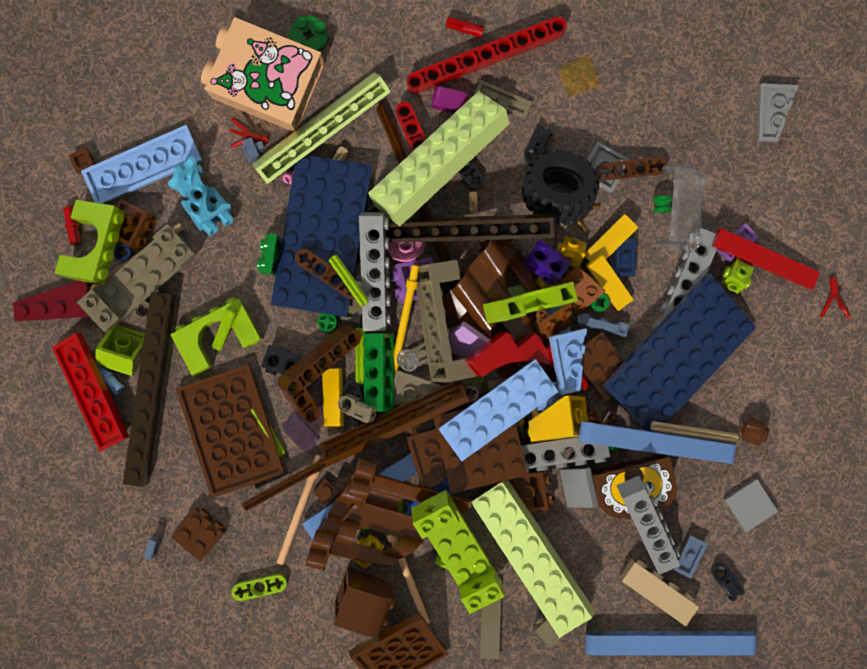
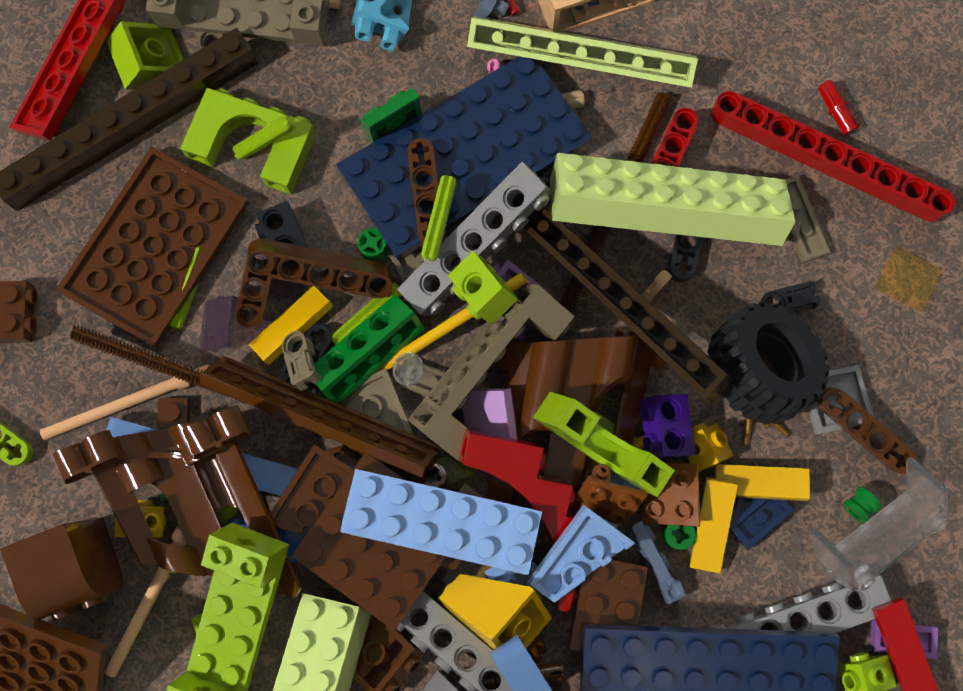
camera: 50 degrees right, 10 degrees down
(110, 381) = (101, 71): light blue axle -> none
(399, 252) = (534, 257): bright pink dish -> none
(413, 291) = (482, 288): none -> lime brick
(448, 99) = (743, 157): magenta beam -> none

